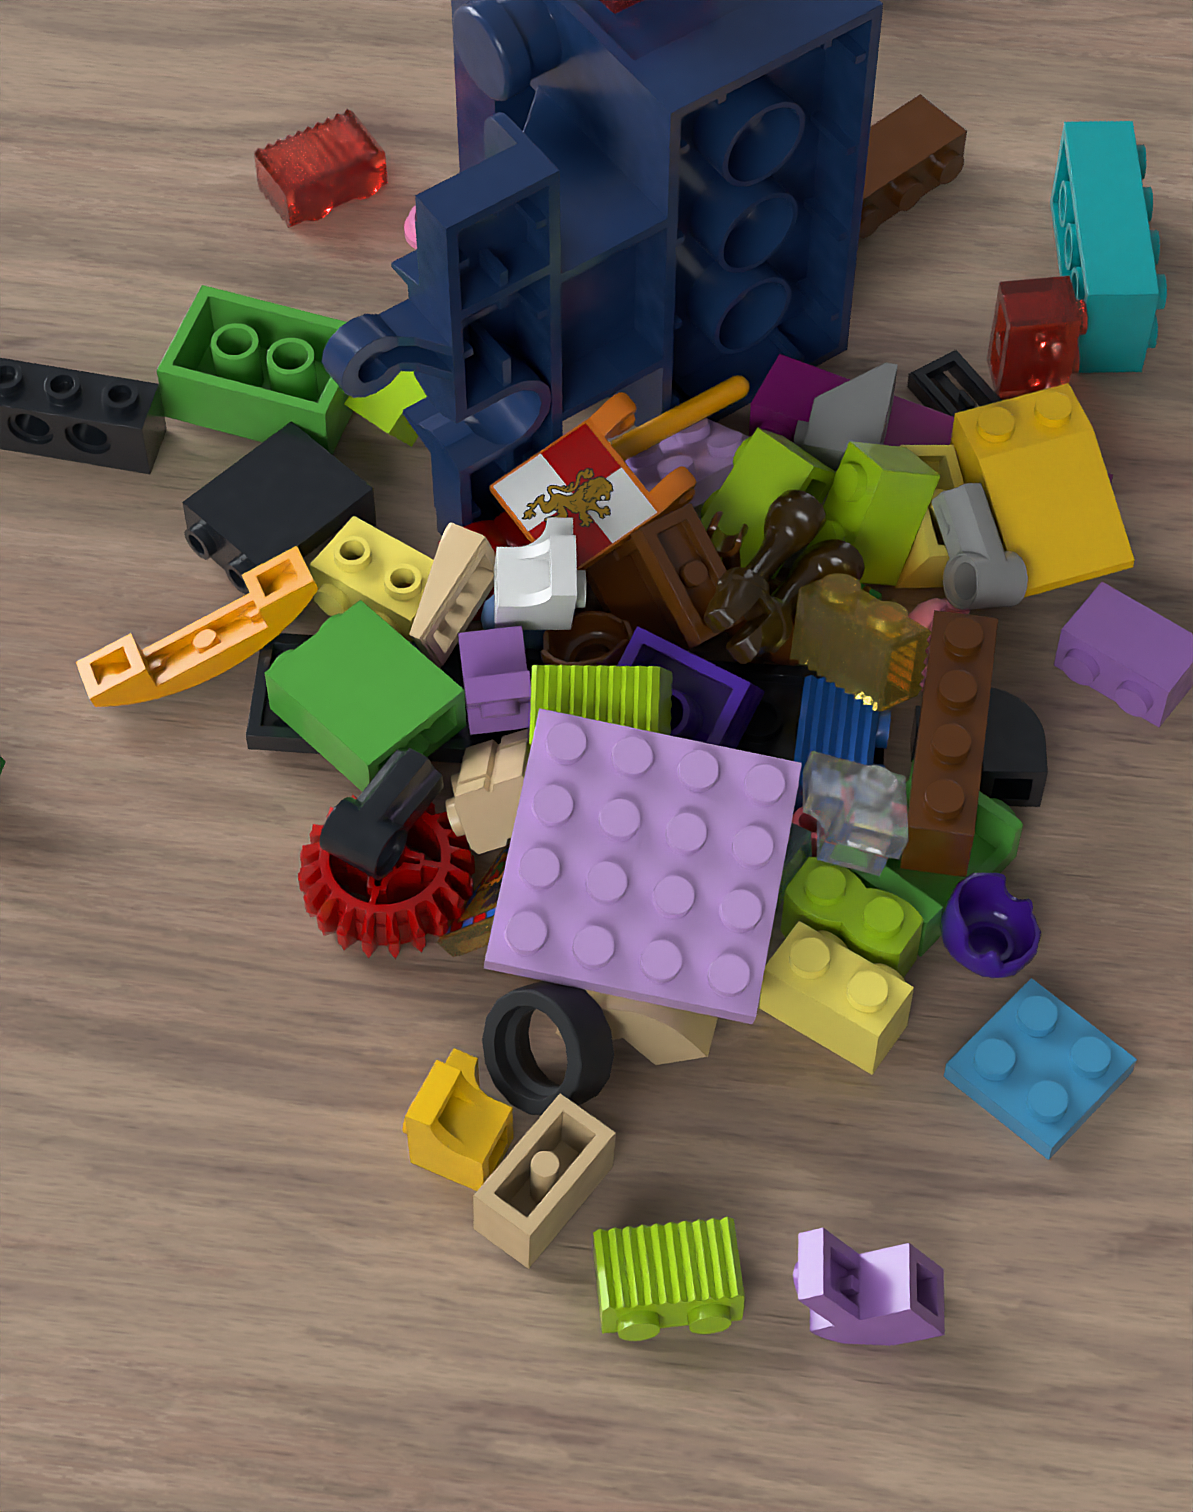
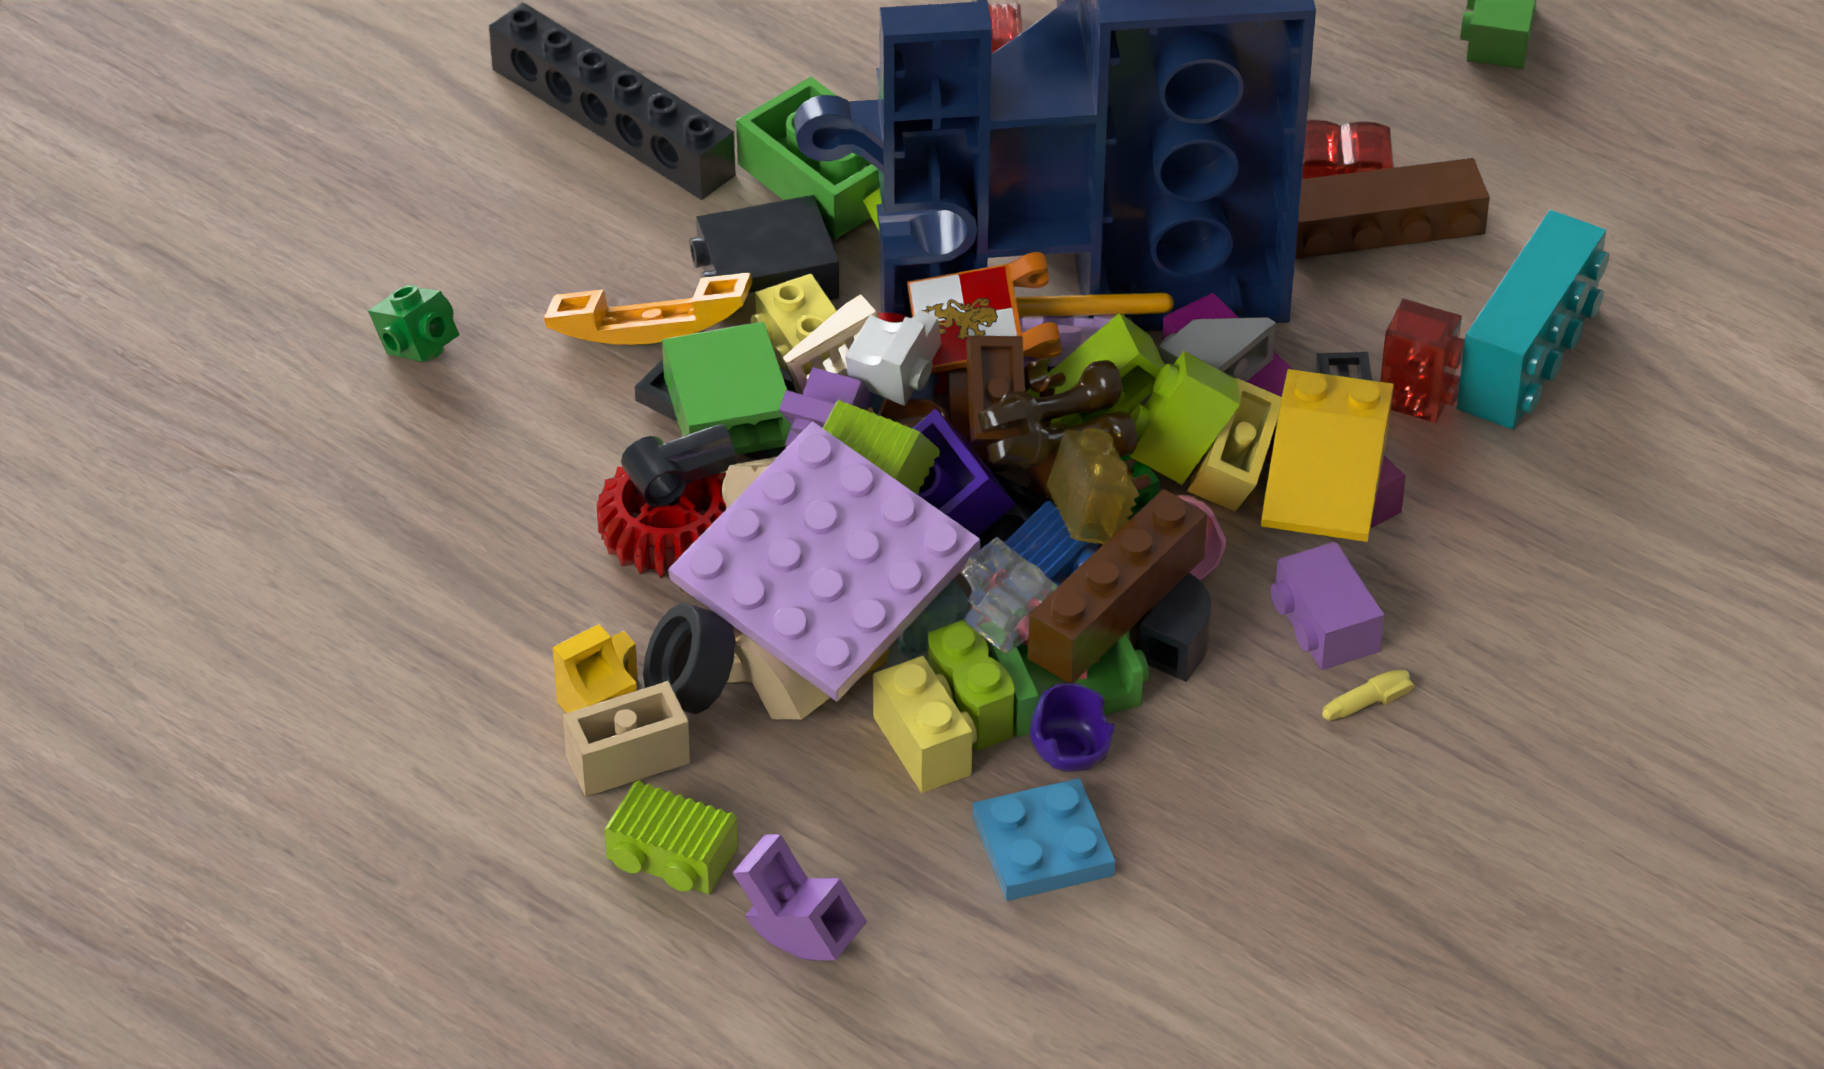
camera: 30 degrees right, 10 degrees down
(978, 567) = (1237, 482): light grey piece -> none

